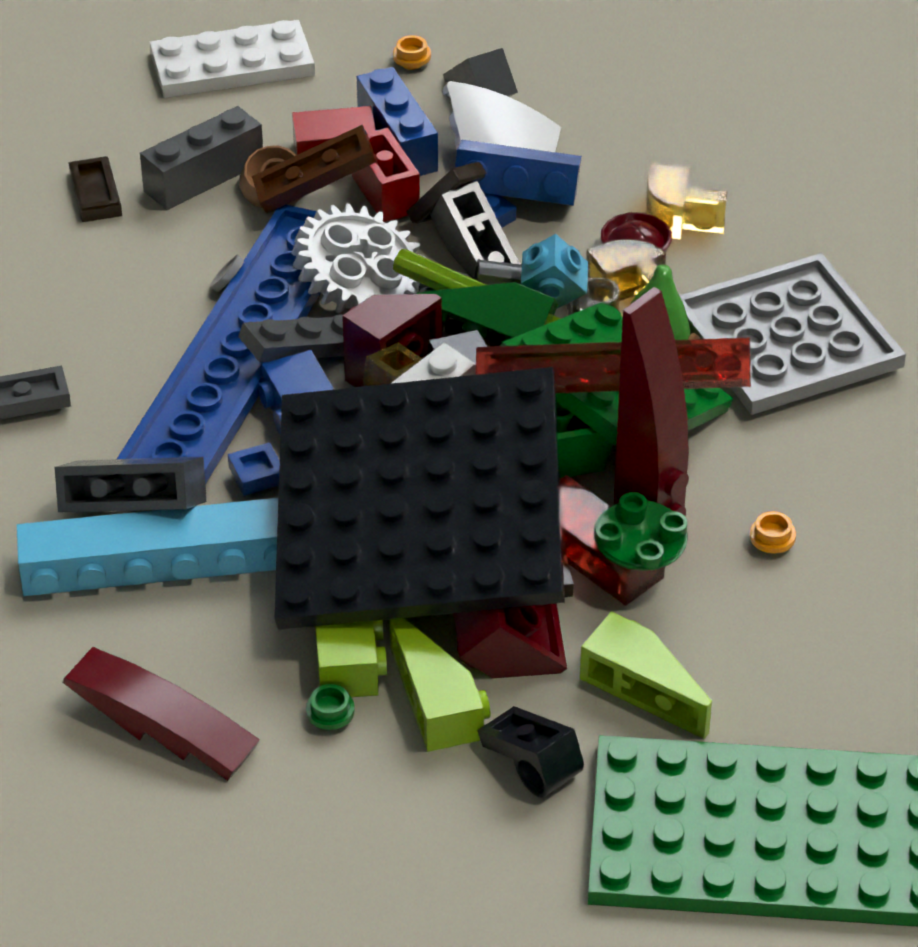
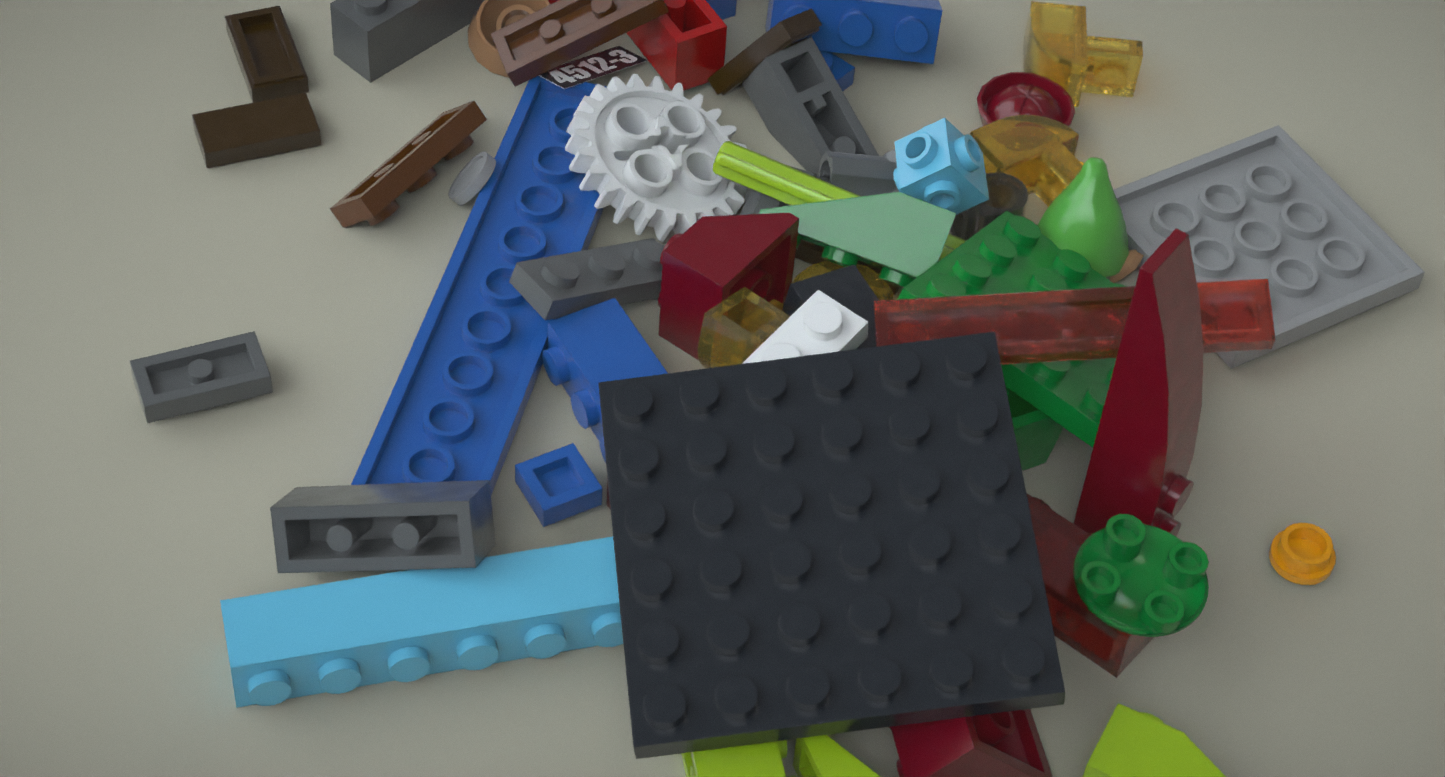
camera: 10 degrees left, 5 degrees up
(81, 238) = (256, 130): none -> dark brown tile
(185, 265) = (410, 166): none -> reddish brown plate
(324, 202) = (592, 67): none -> sticker

